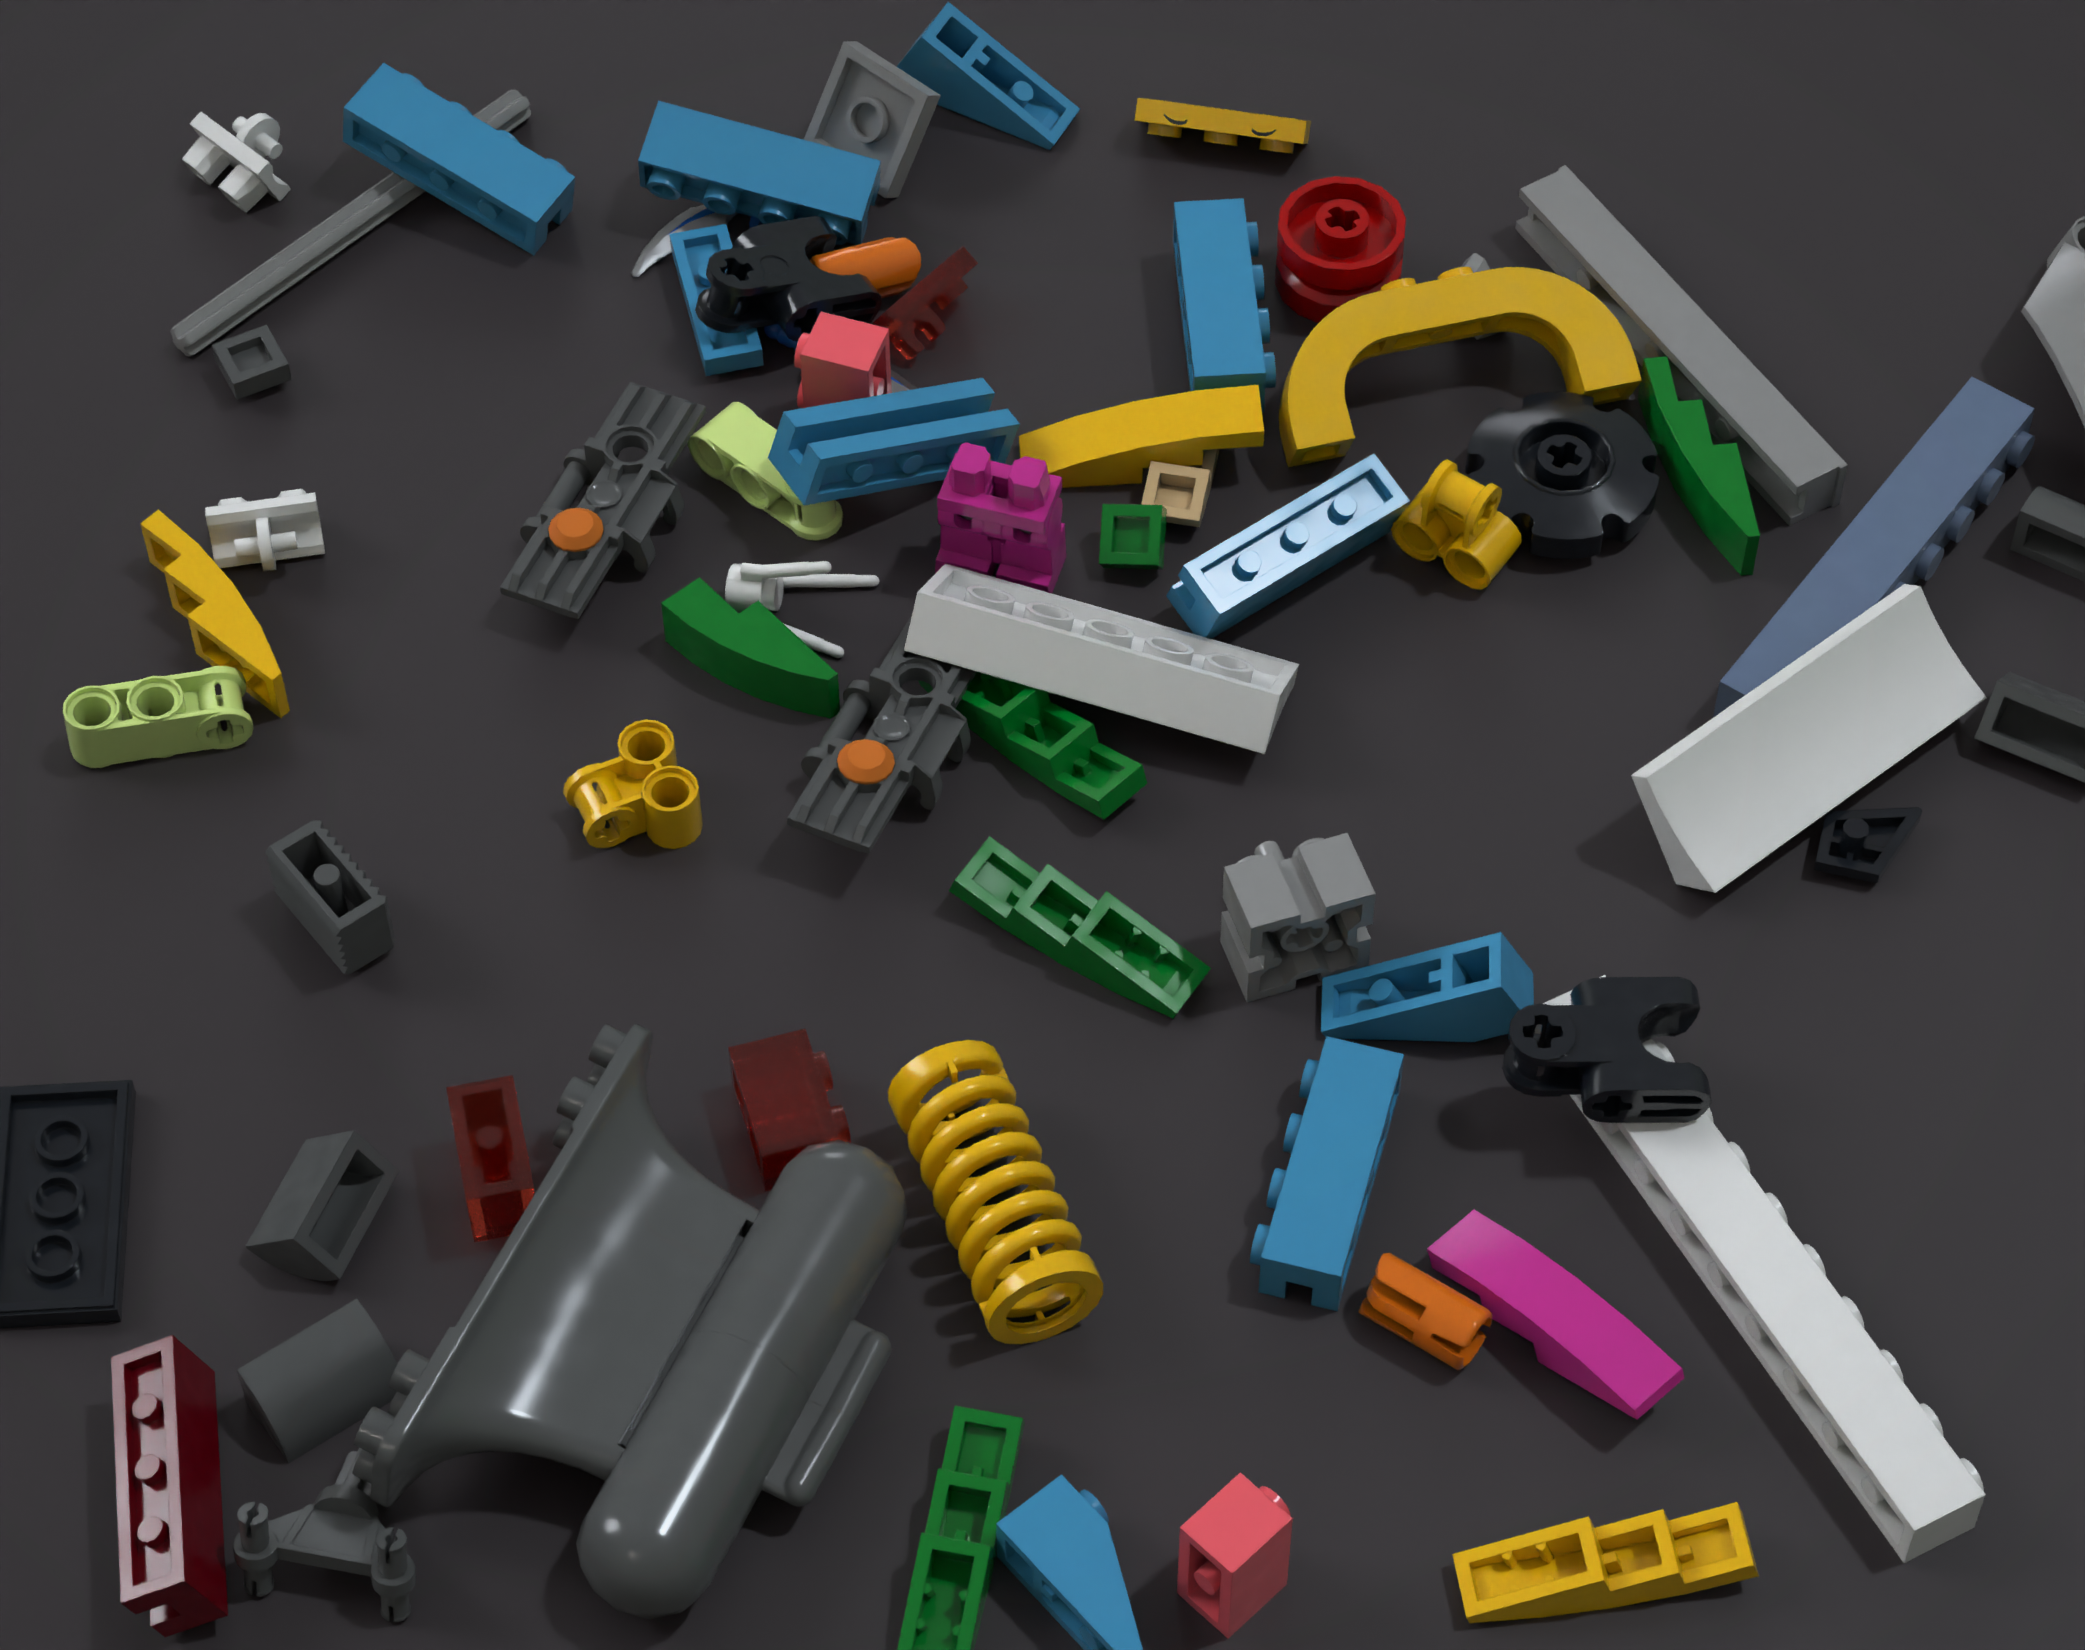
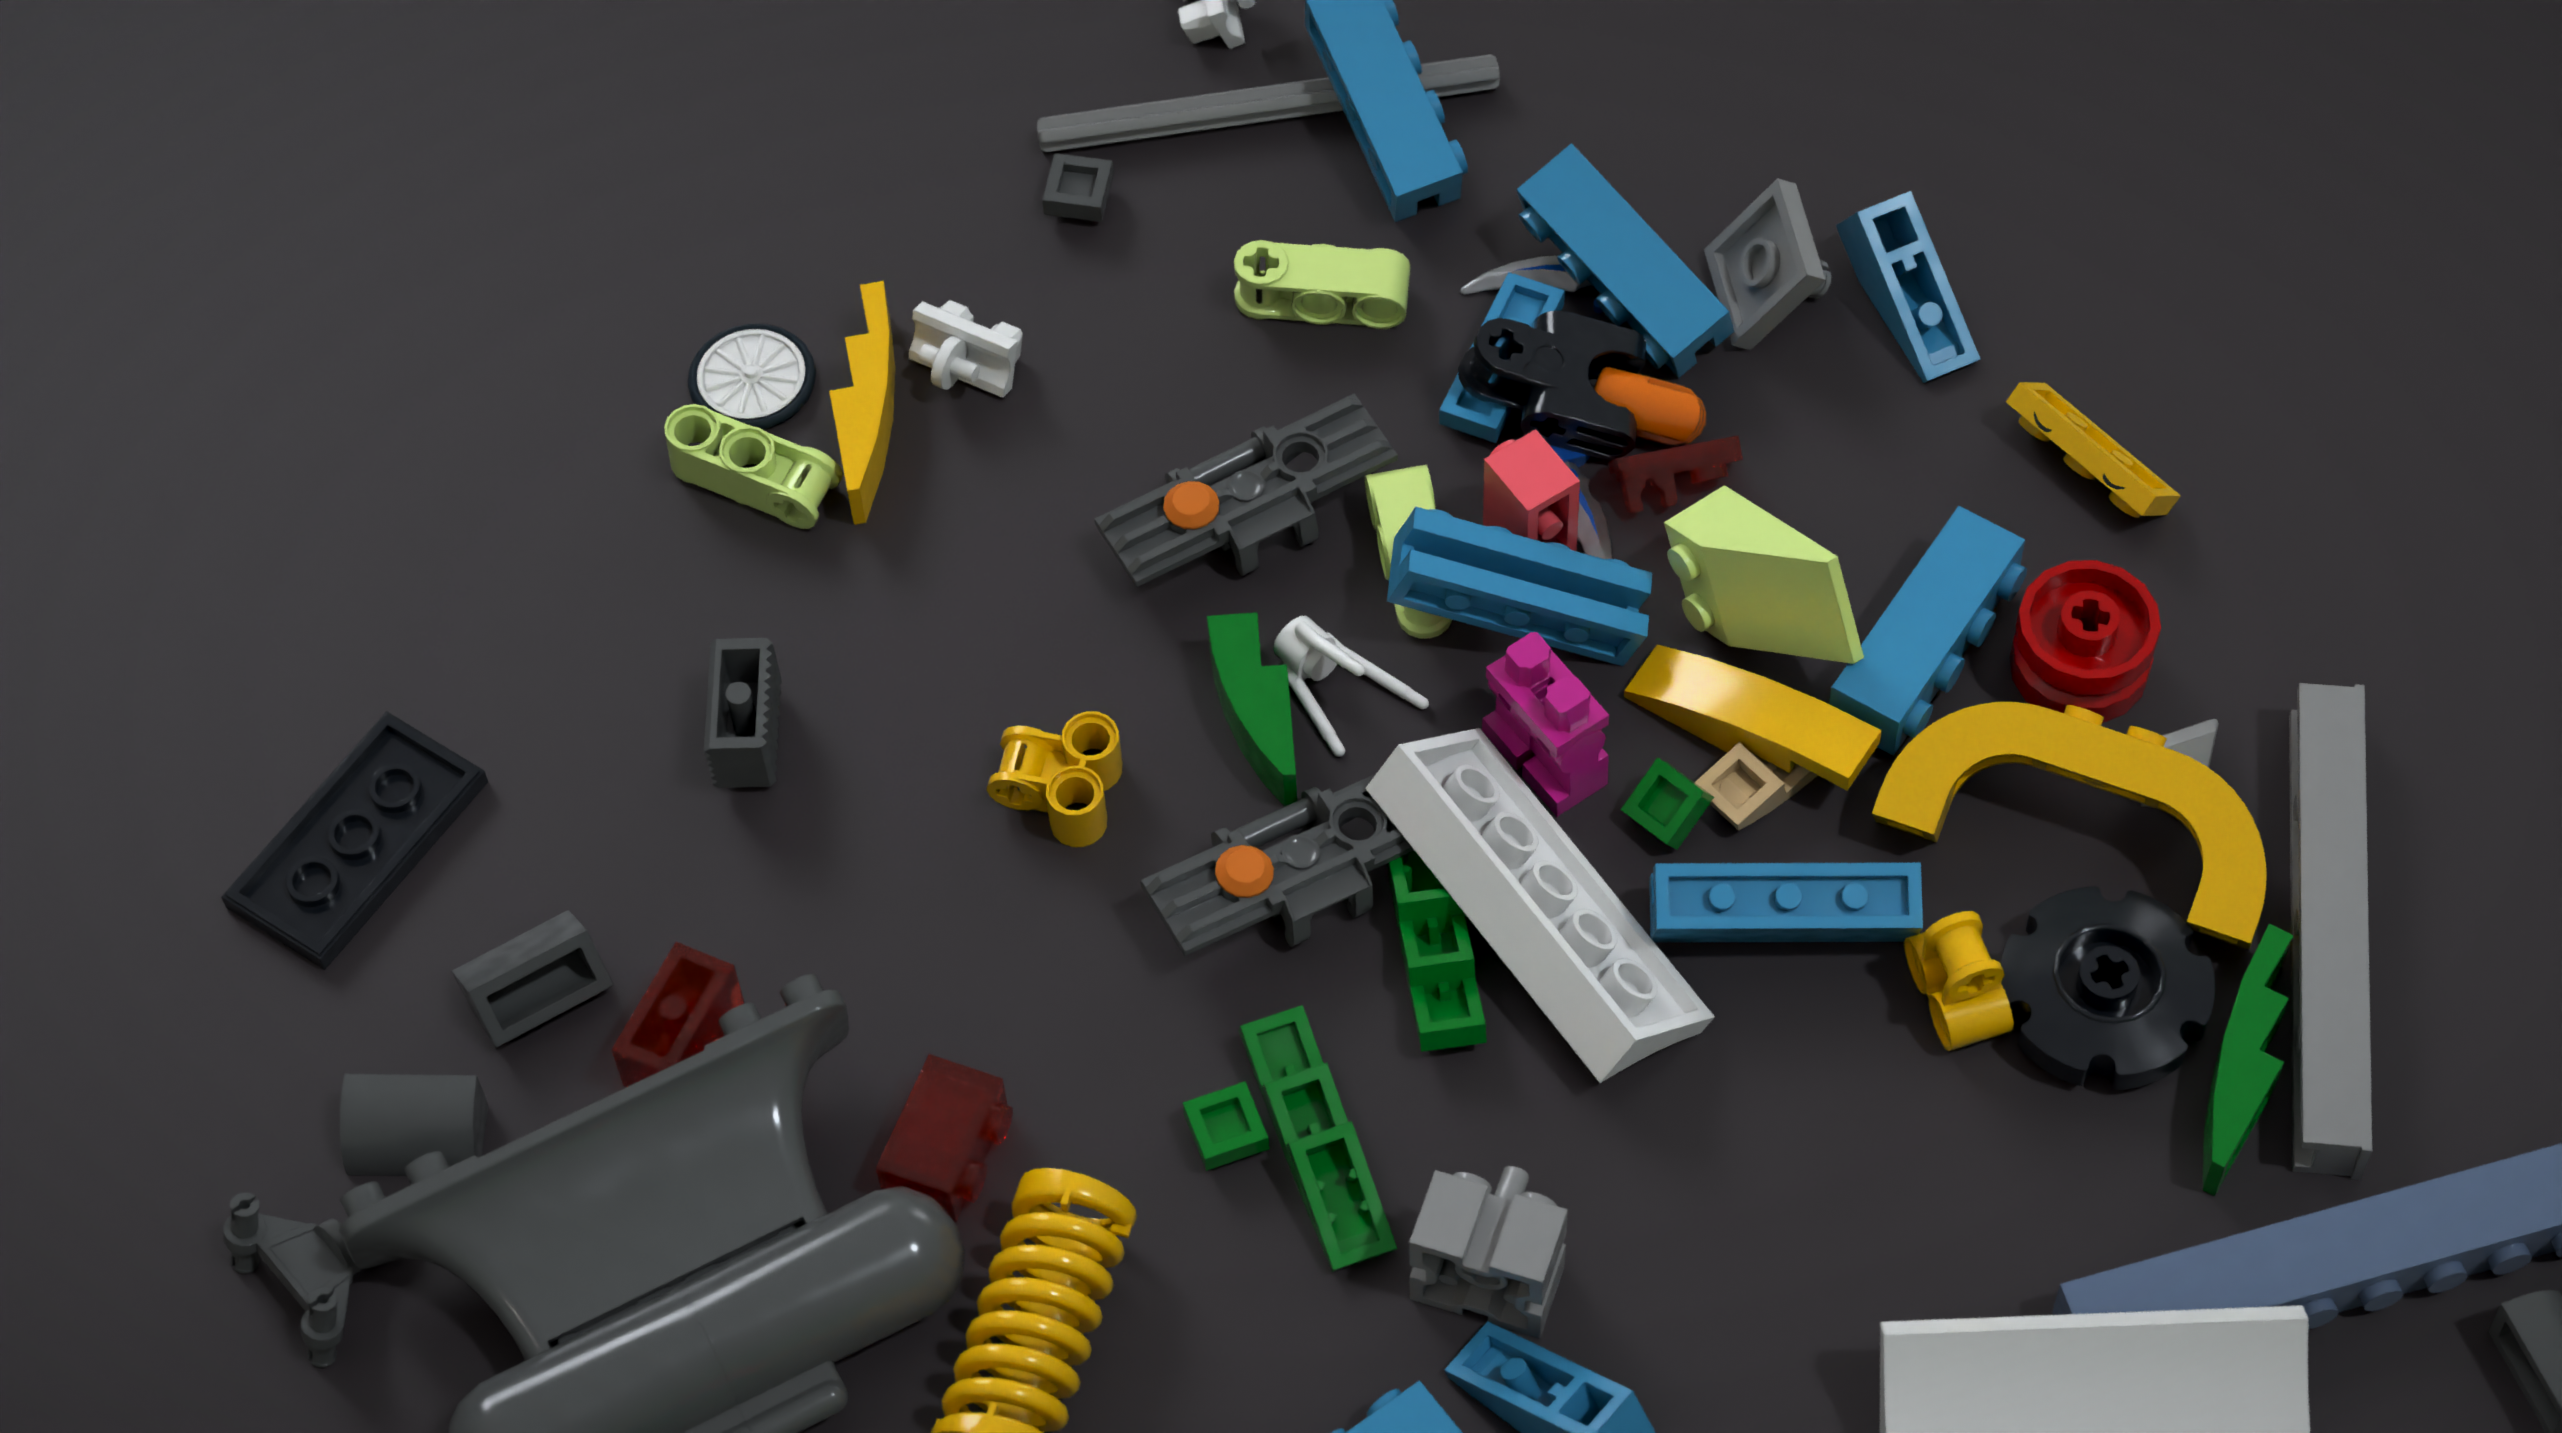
camera: 40 degrees right, 5 degrees up
(88, 649) = (753, 374): none -> white wheel
(168, 1486) = (226, 1134): dark red brick -> none
(524, 324) = (1323, 284): none -> yellowish green piece
(1001, 963) = (1225, 1125): none -> green plate
(1084, 328) = (1760, 581): none -> yellowish green slope

